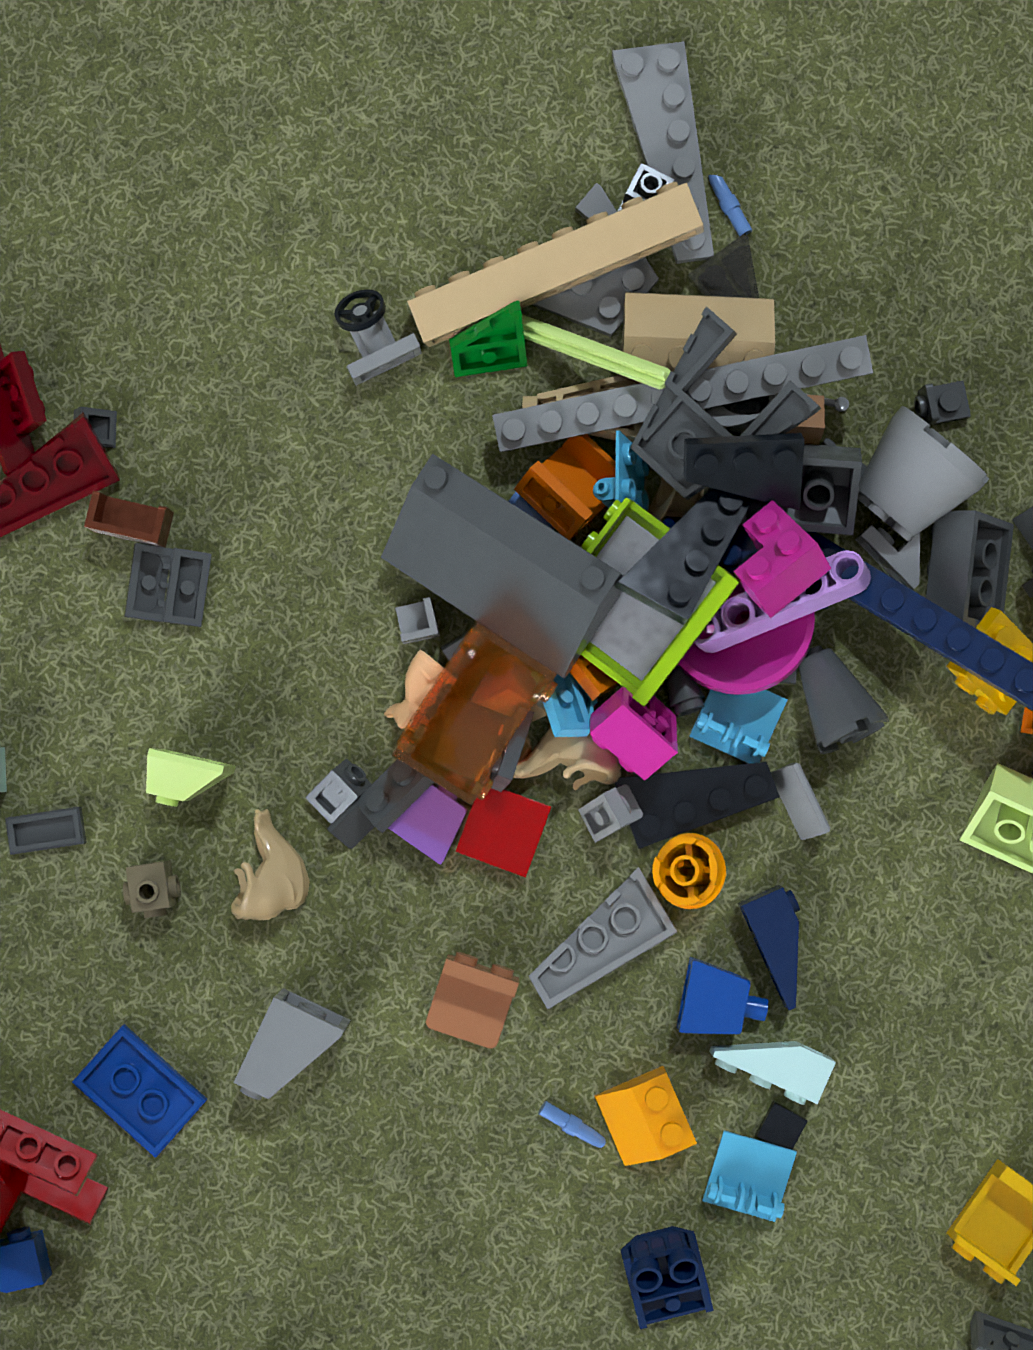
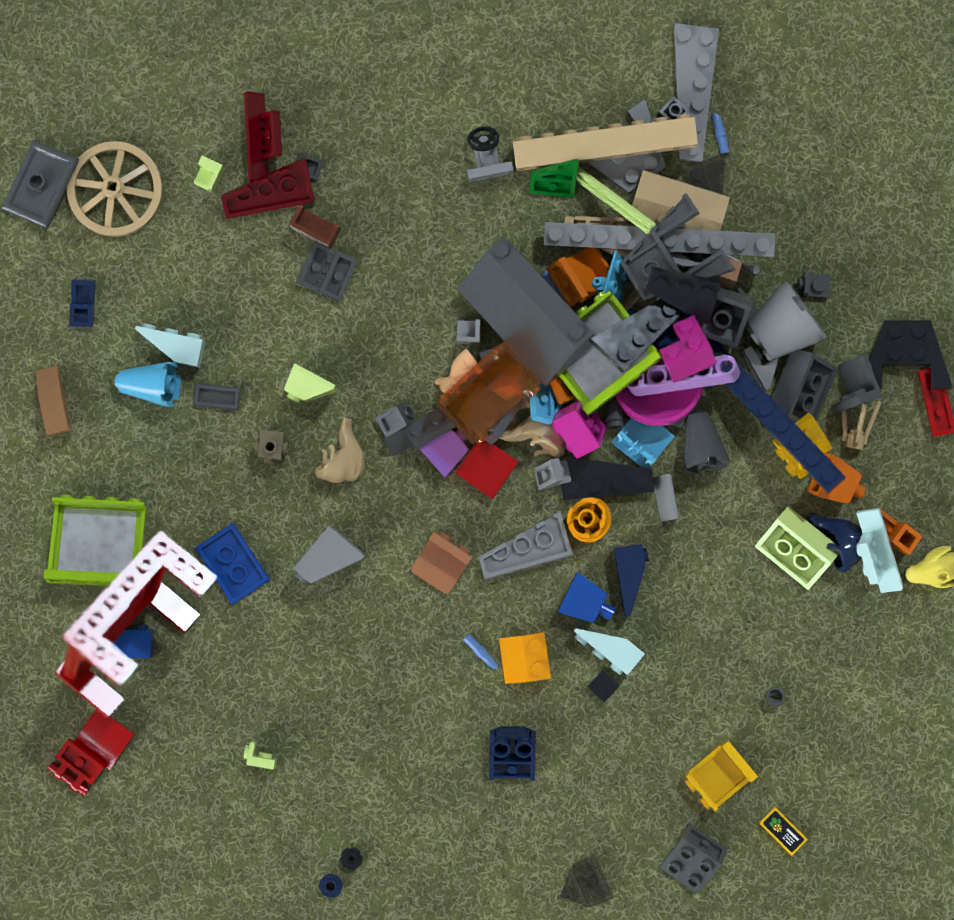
camera: 20 degrees right, 0 degrees up
(749, 1176) = (576, 708): medium azure hinge -> none

